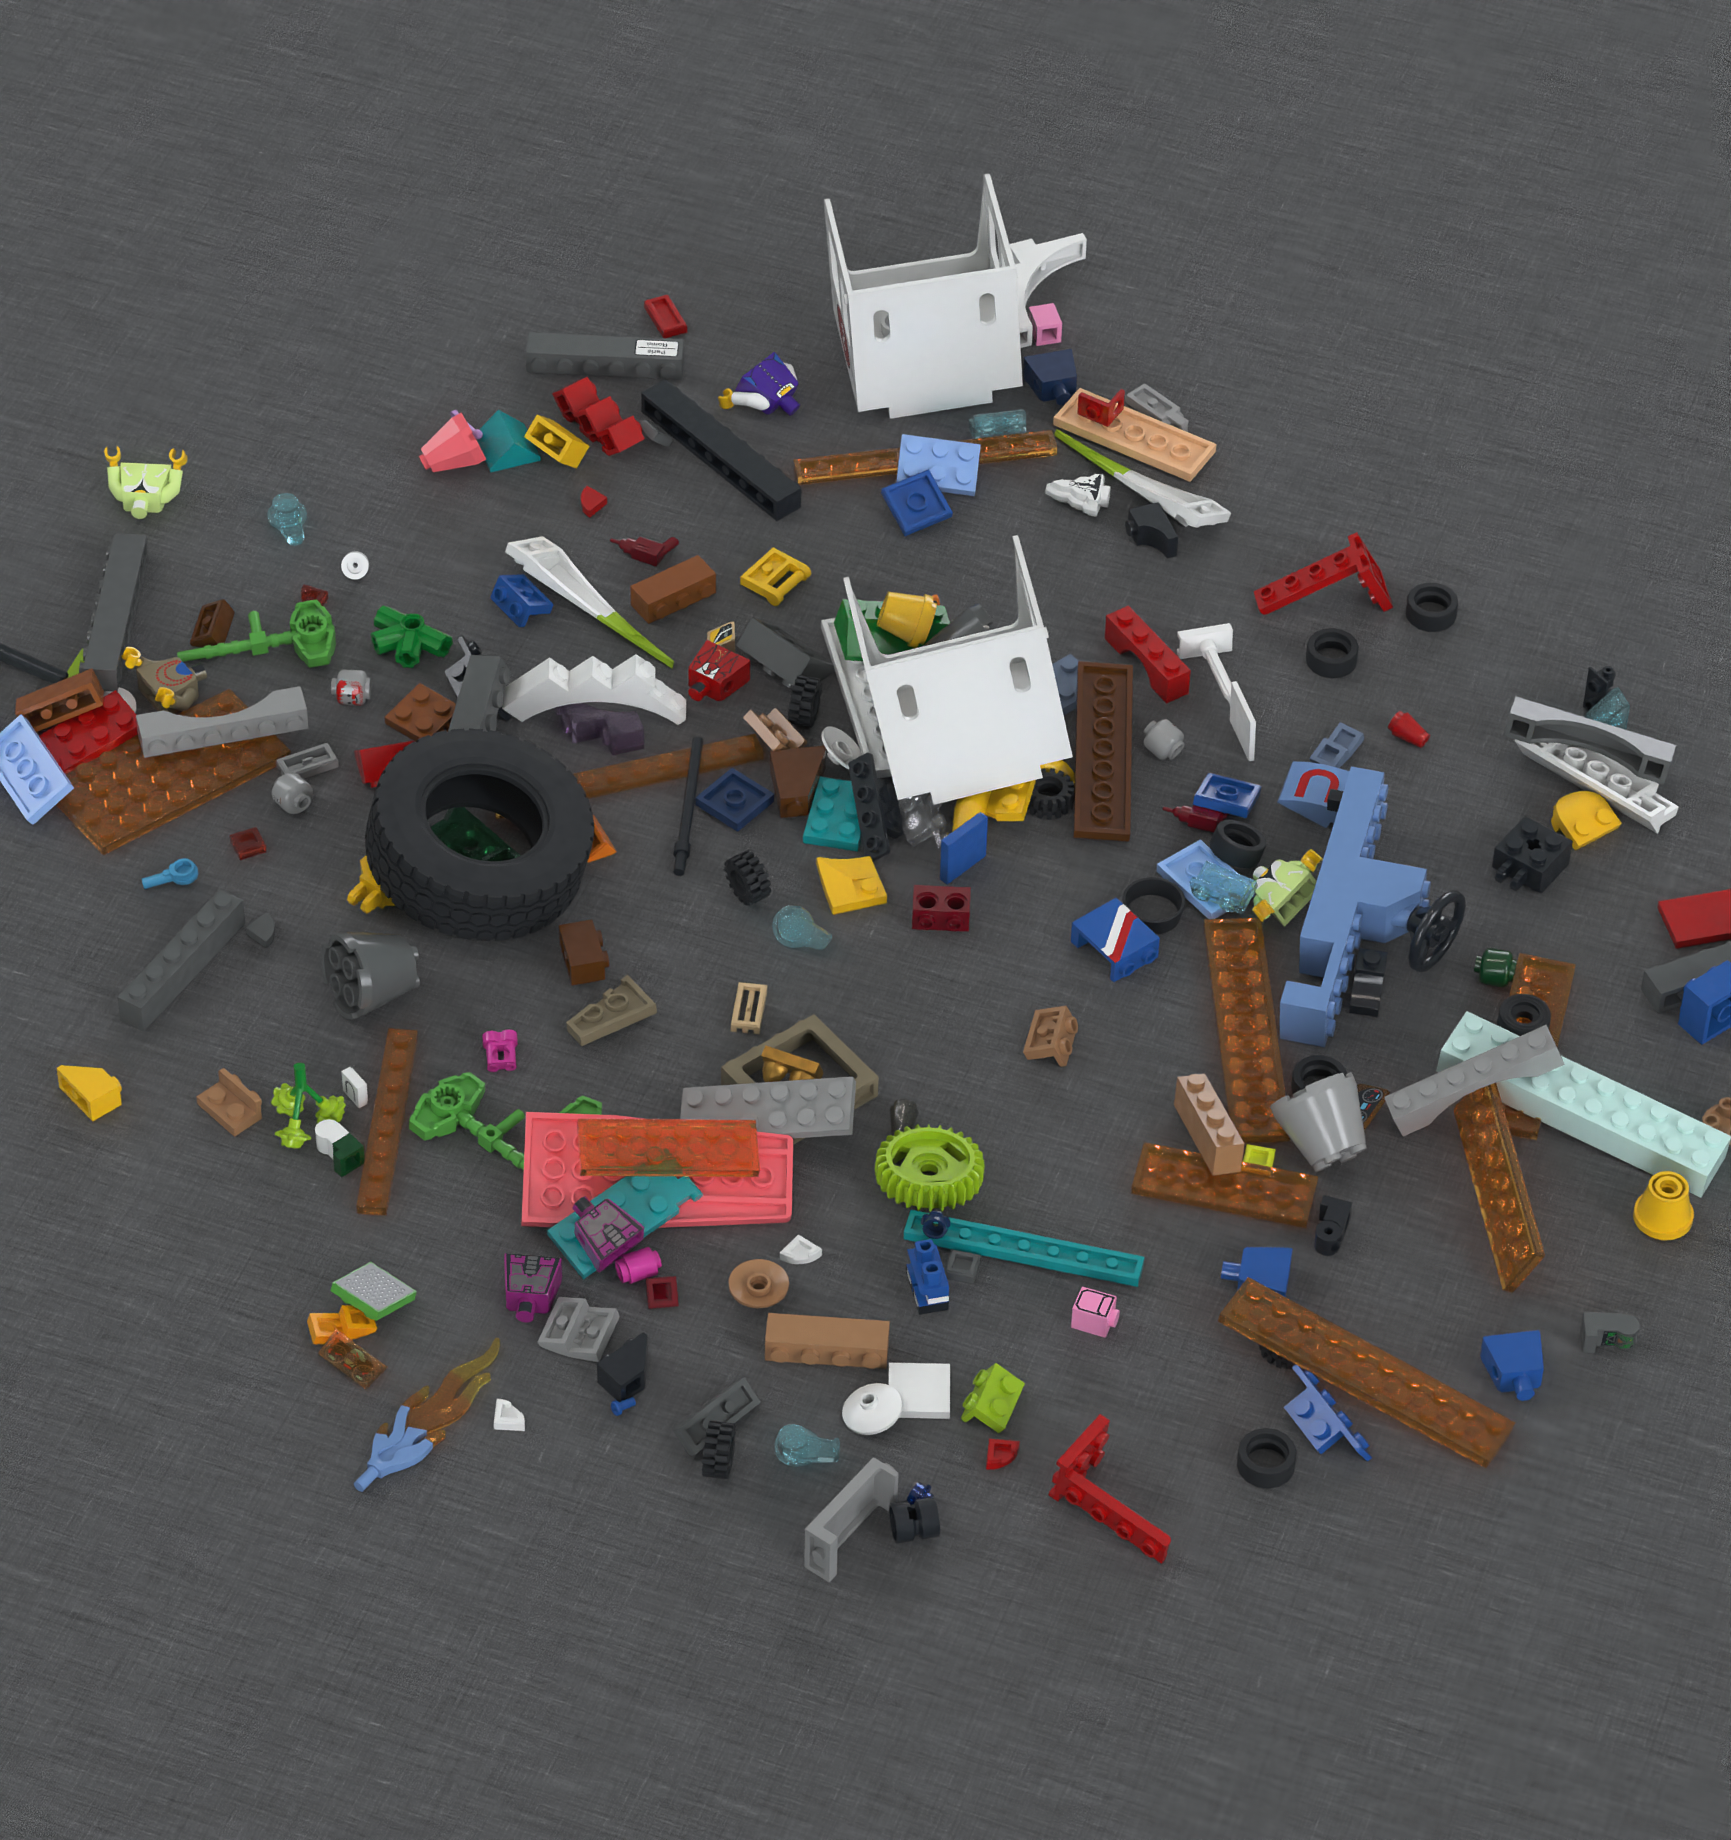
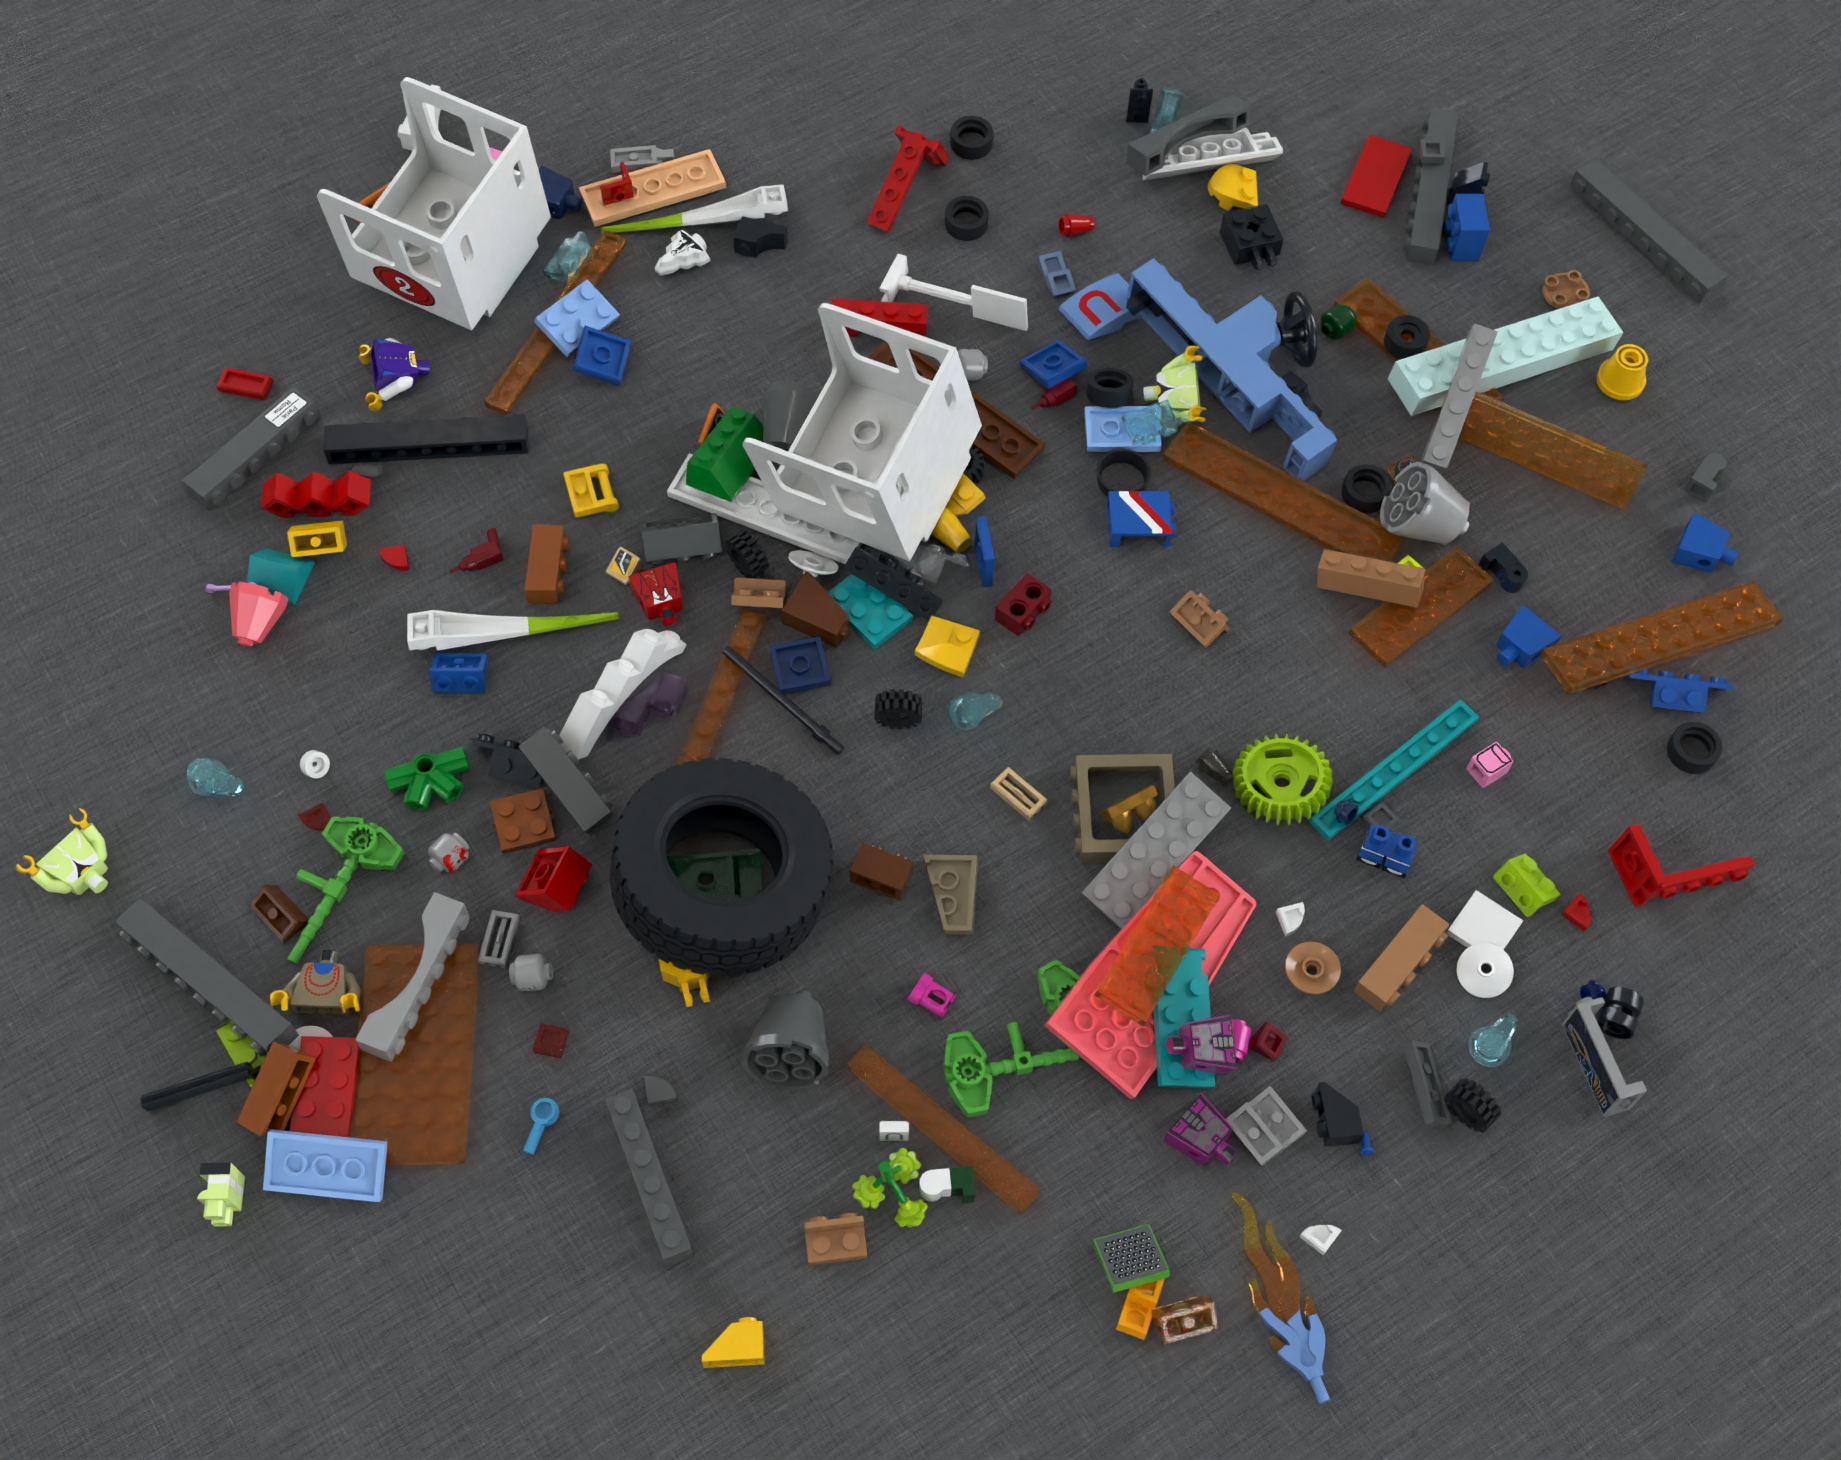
camera: 55 degrees left, 15 degrees up
(907, 616) = (746, 423): yellow piece -> none

